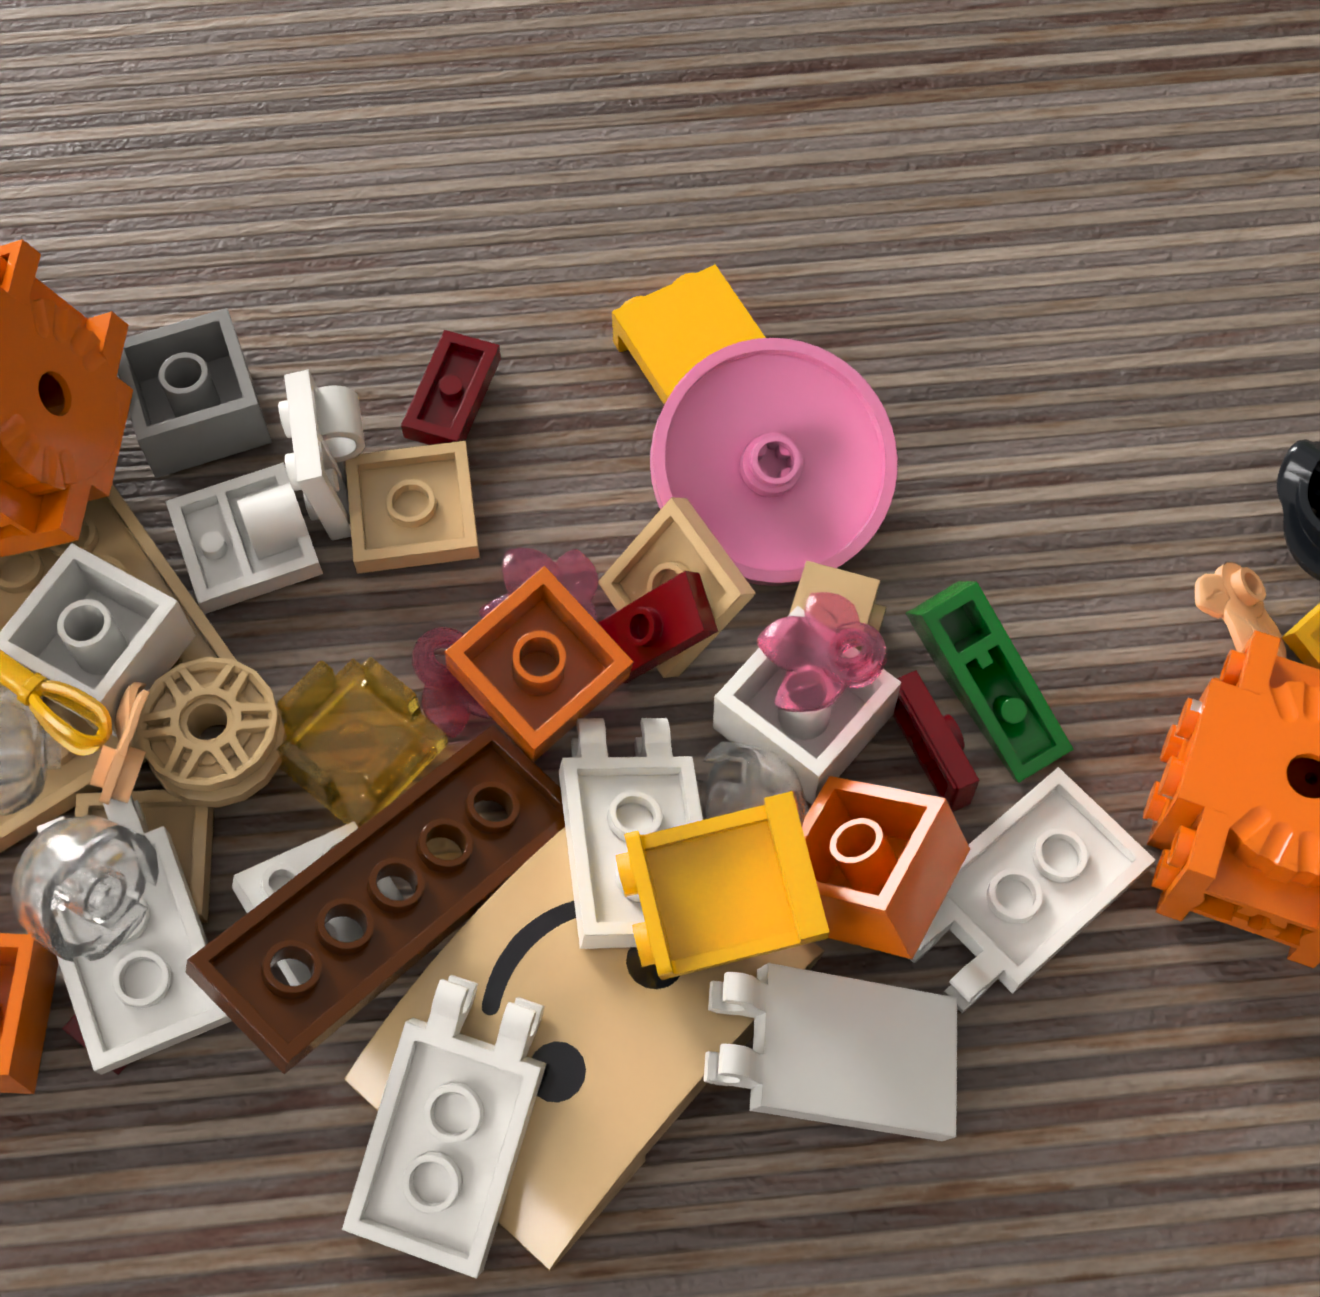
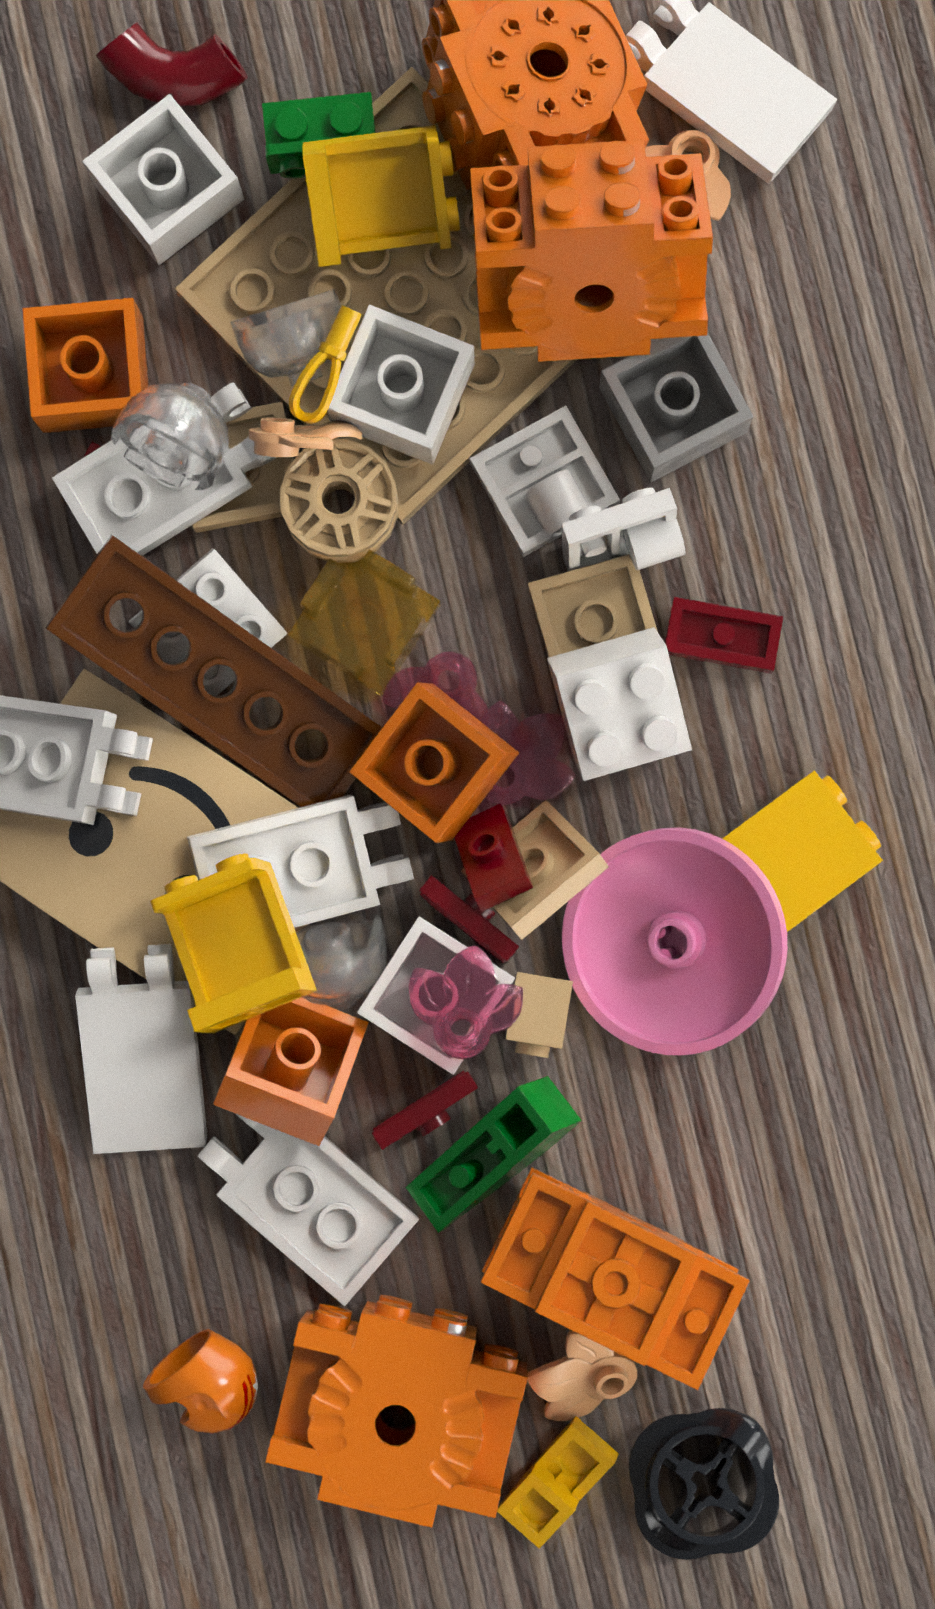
camera: 90 degrees right, 20 degrees up
(506, 478) = (619, 703): none -> white brick
(711, 669) = (469, 919): none -> dark red plate
(1139, 535) = (614, 1278): none -> orange piece
(1250, 1006) = (207, 1378): none -> orange helmet

